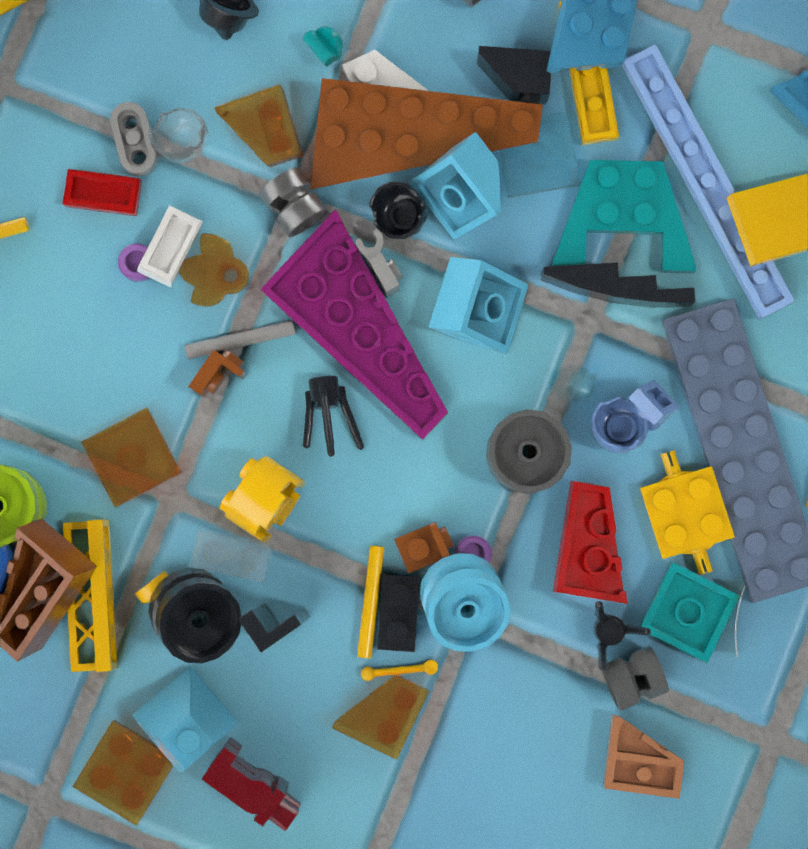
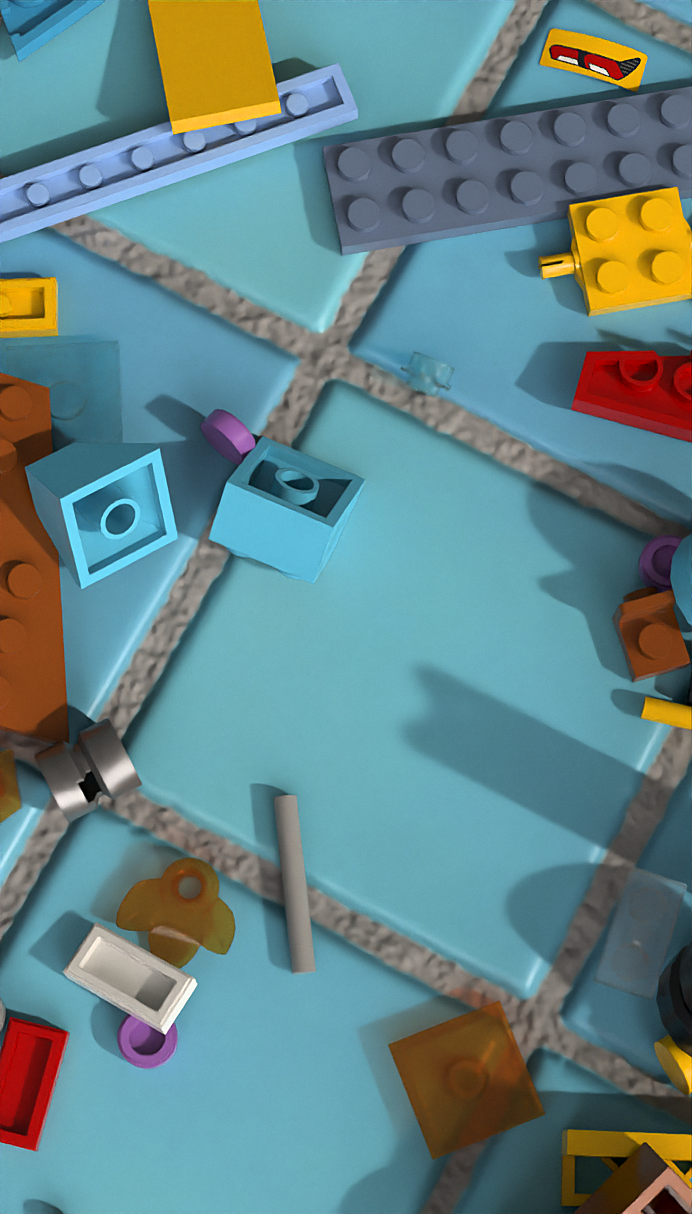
camera: 85 degrees left, 10 degrees down
(210, 377) = (349, 934): dark orange bracket -> none
(262, 497) = (557, 864): yellow brick -> none
(324, 394) = (400, 755): black plant -> none
(344, 311) = (274, 711): magenta wing -> none
(384, 271) = (216, 644): light grey plate -> none
(398, 210) = (124, 609): black hair -> none
(523, 261) = (228, 435): none -> medium lavender tile
(528, 429) = (554, 452): dark grey wheel -> none
(603, 283) = (280, 317): black slope -> none
(618, 425) = (495, 325): medium blue hair -> none
(626, 200) = (153, 282): teal wing -> none
(653, 404) = (472, 275): medium blue bracket -> none

